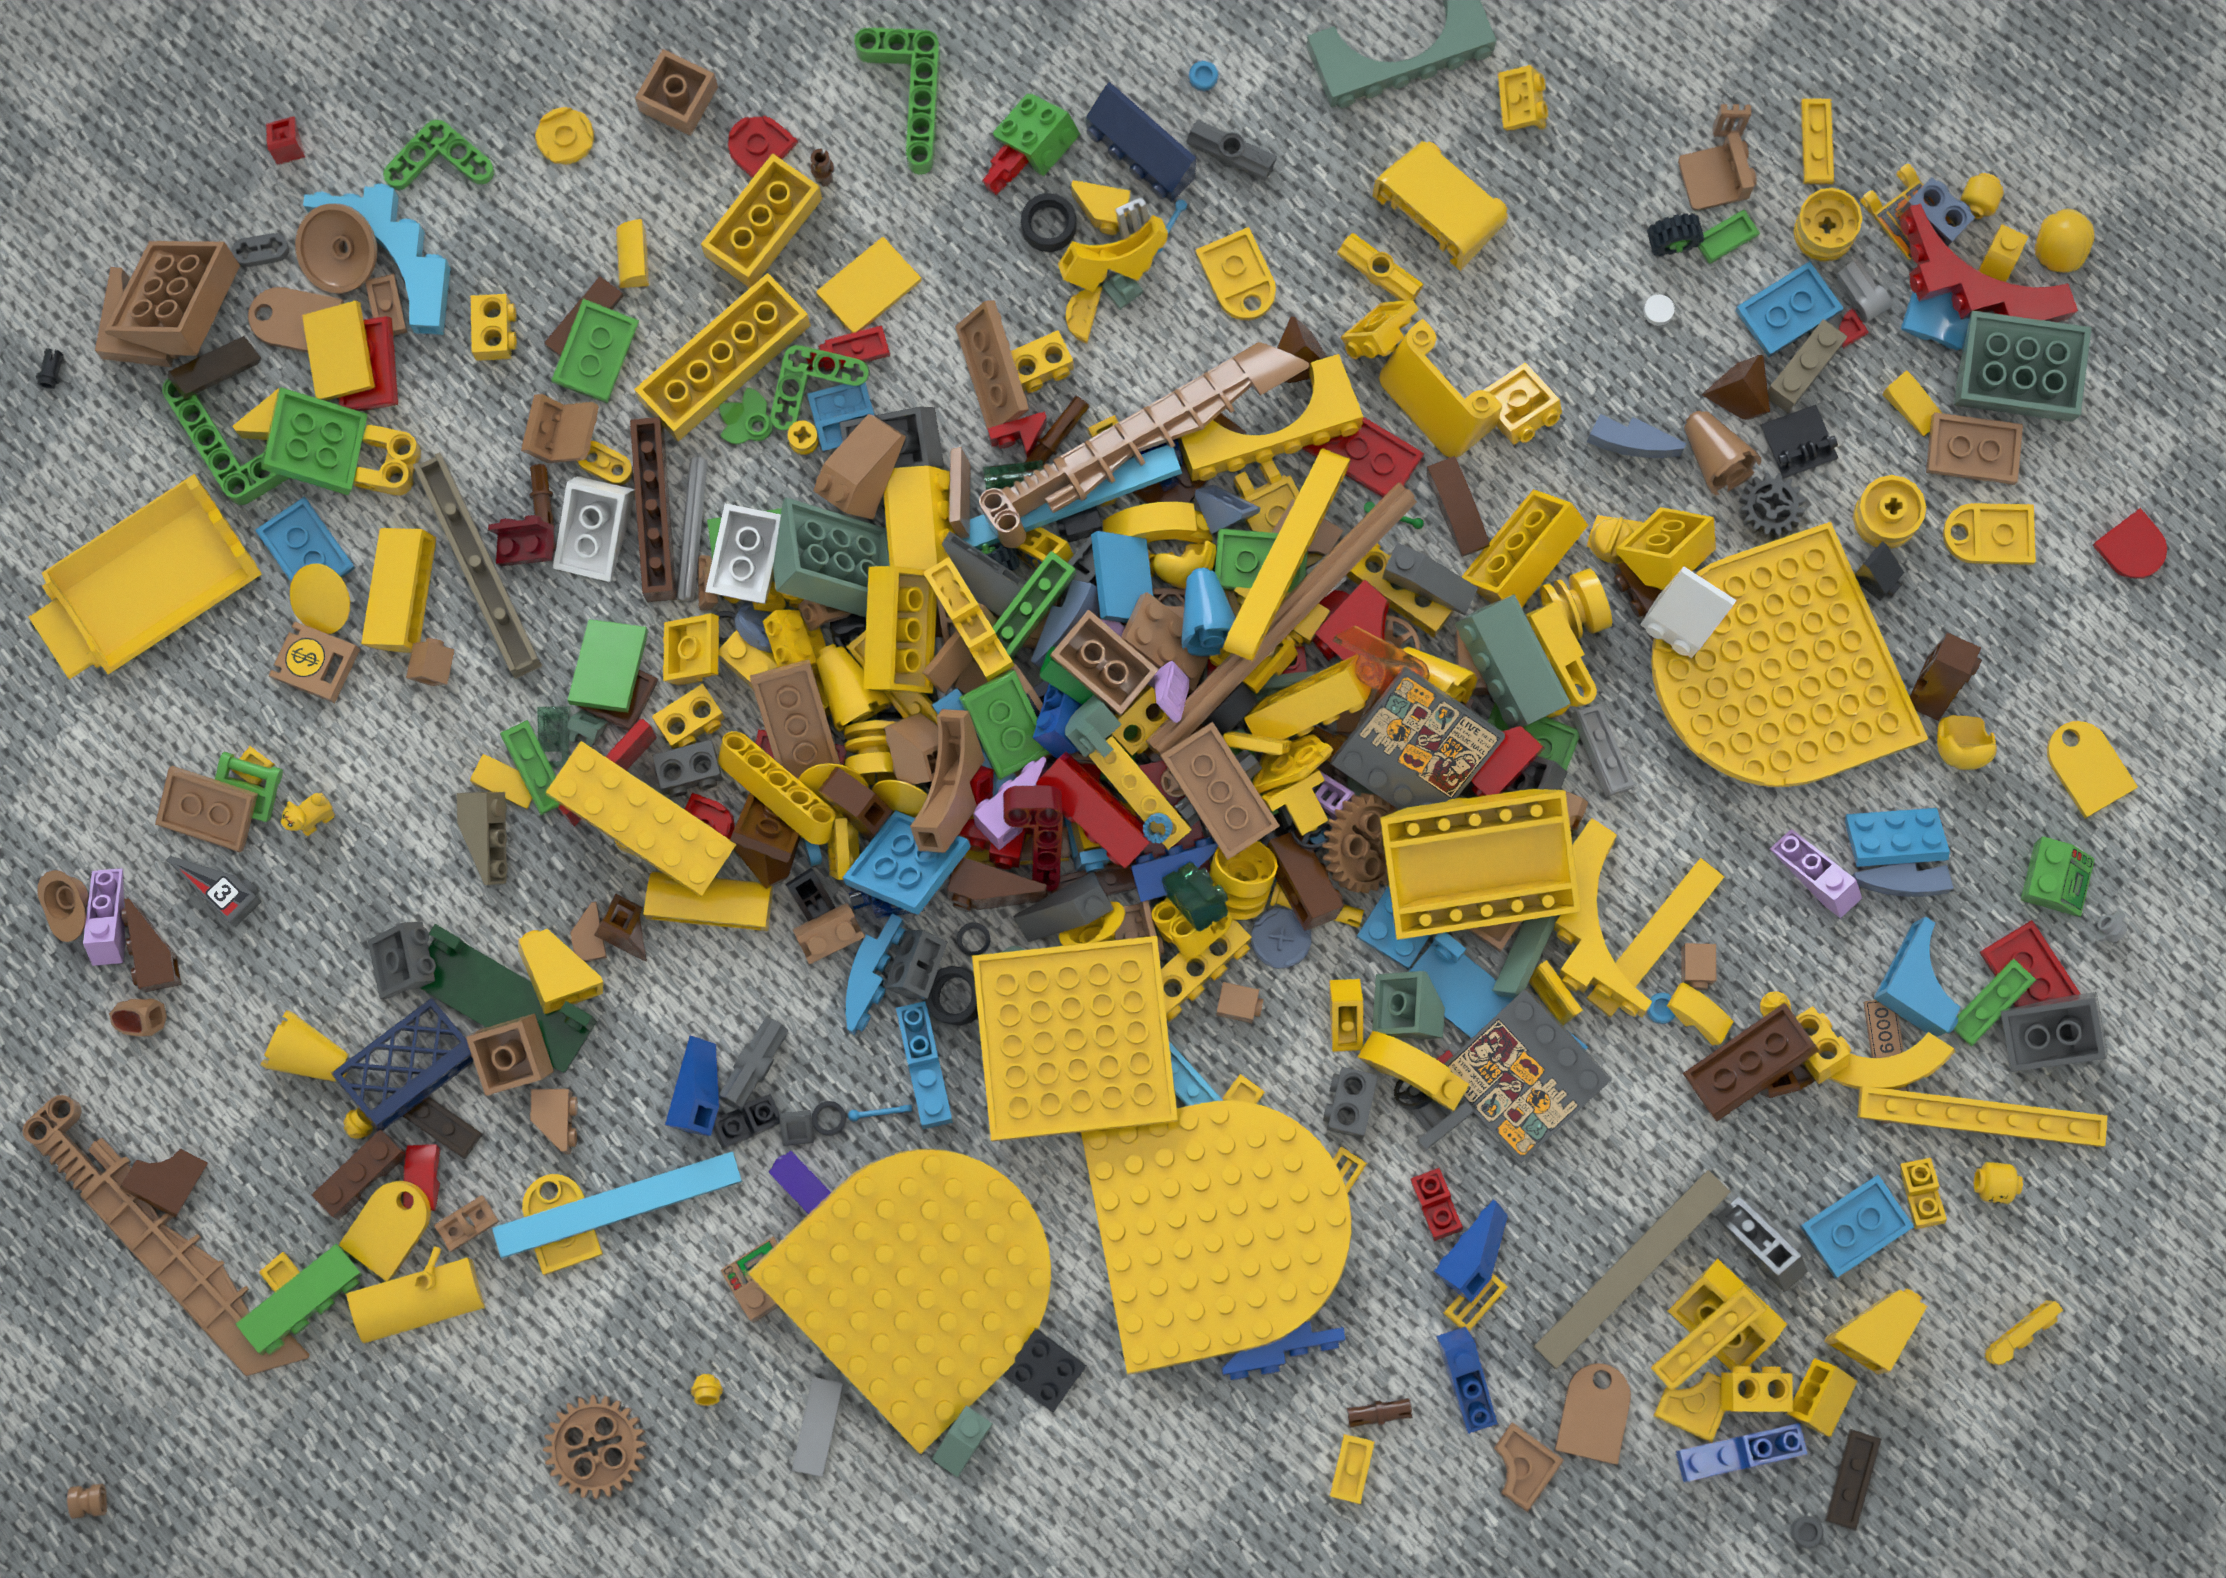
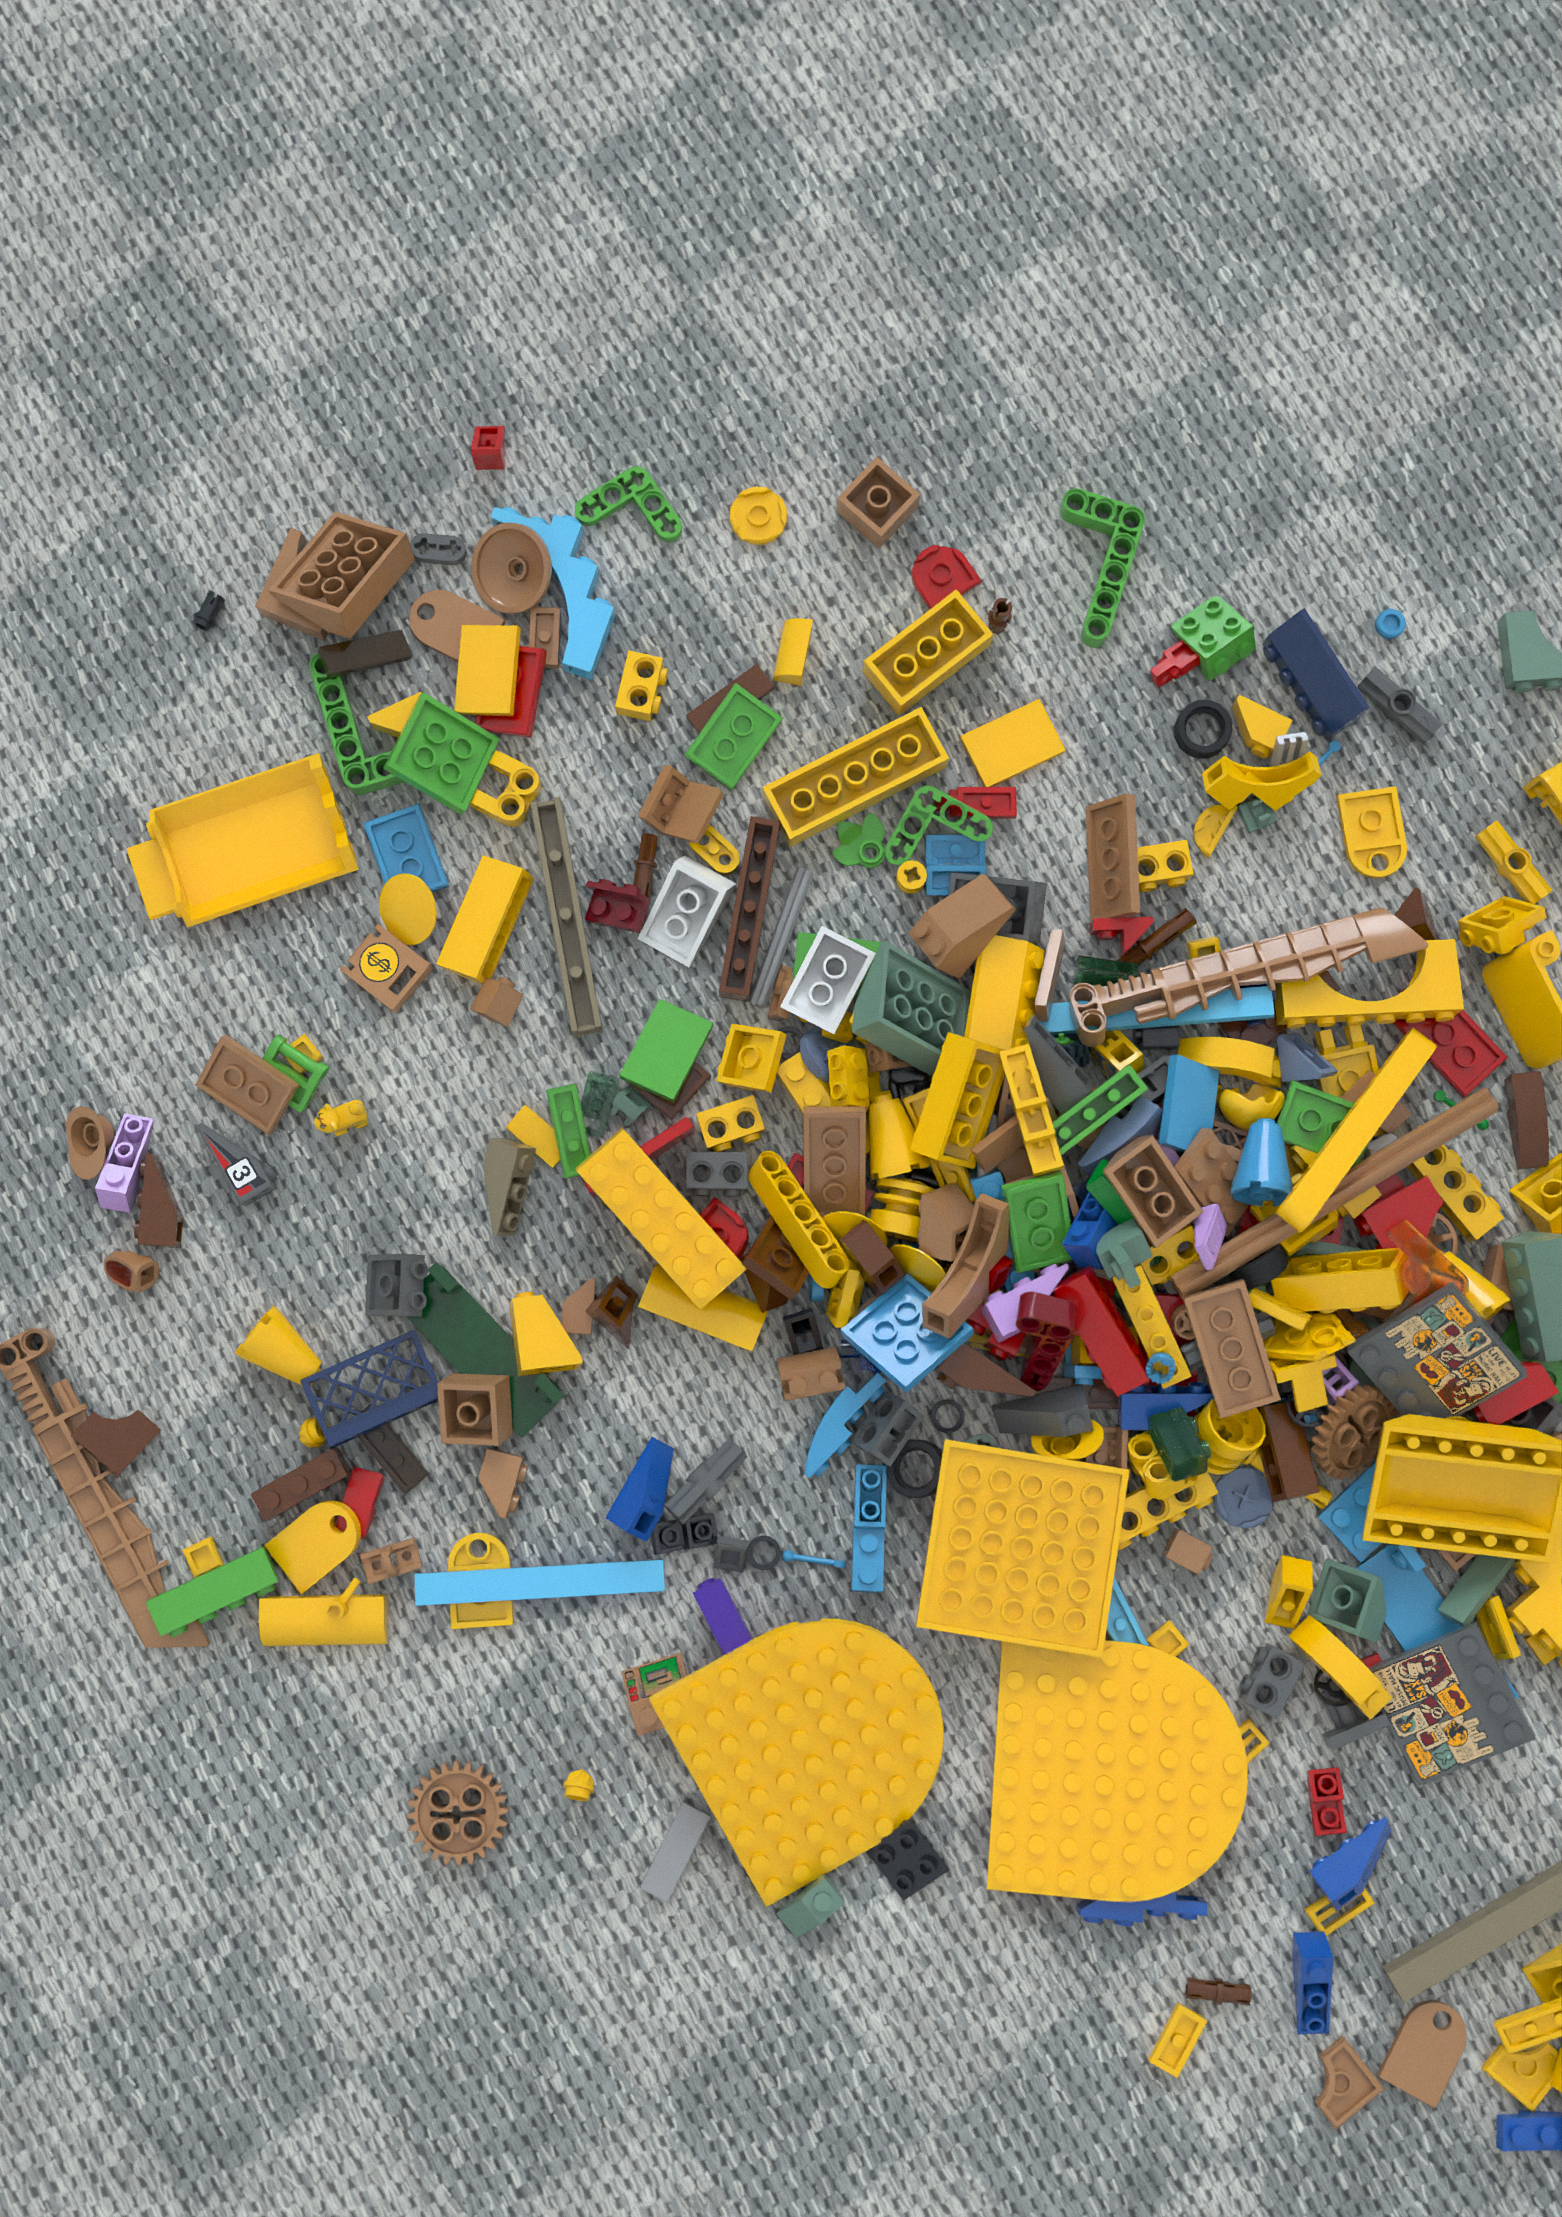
camera: 10 degrees right, 5 degrees up
(1428, 579) = (1484, 1187): dark grey slope -> none

